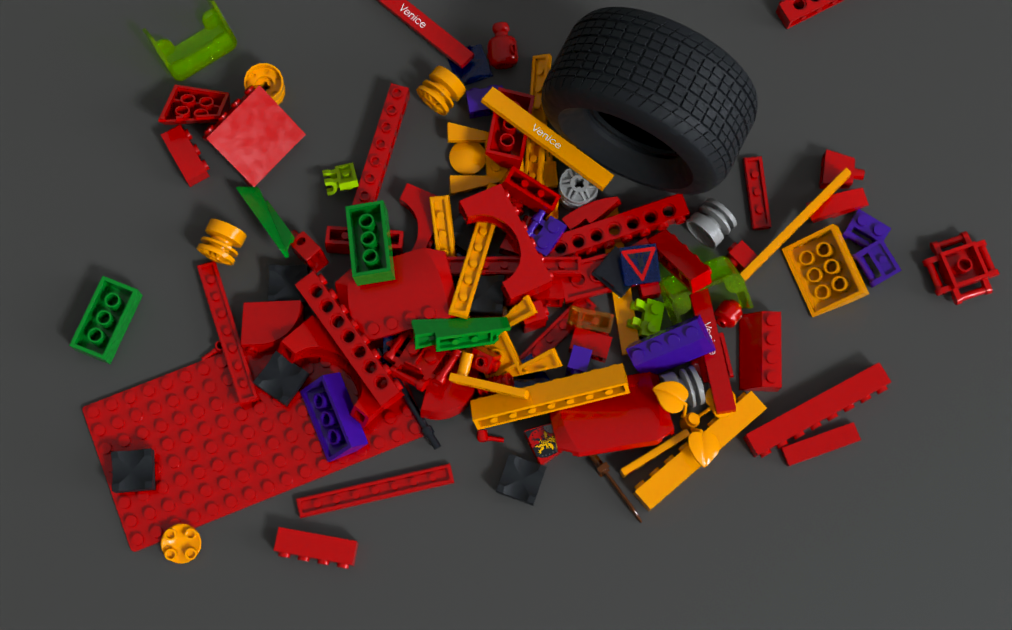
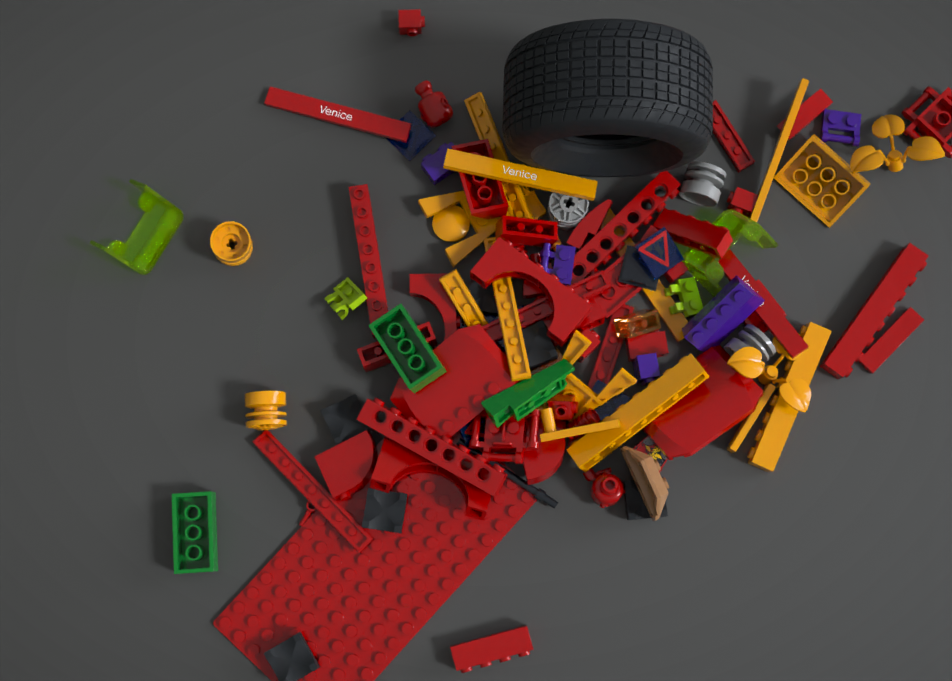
camera: 25 degrees left, 5 degrees up
(186, 155) = (189, 342): red brick -> none
(194, 106) = (175, 292): red wedge -> none
(254, 134) = (246, 295): panel -> none
(268, 218) = (297, 366): green wedge -> none
(308, 251) = (348, 380): red torso -> none
(330, 414) = (446, 522): dark purple slope -> none
(374, 491) = (518, 571): red tile -> none
(441, 90) = (398, 172): light orange wheel -> none
(489, 454) = (606, 489): none -> red piece
(529, 461) = (647, 479): none -> medium nougat wedge
(603, 469) = (712, 453): reddish brown sword -> none
(728, 313) = (755, 259): red head -> none
(760, 352) = (800, 281): red slope -> none
(833, 164) = (786, 79): red torso -> none
(882, 259) = (861, 139): dark purple plate -> none
(928, 279) = (868, 158): none -> light orange plant

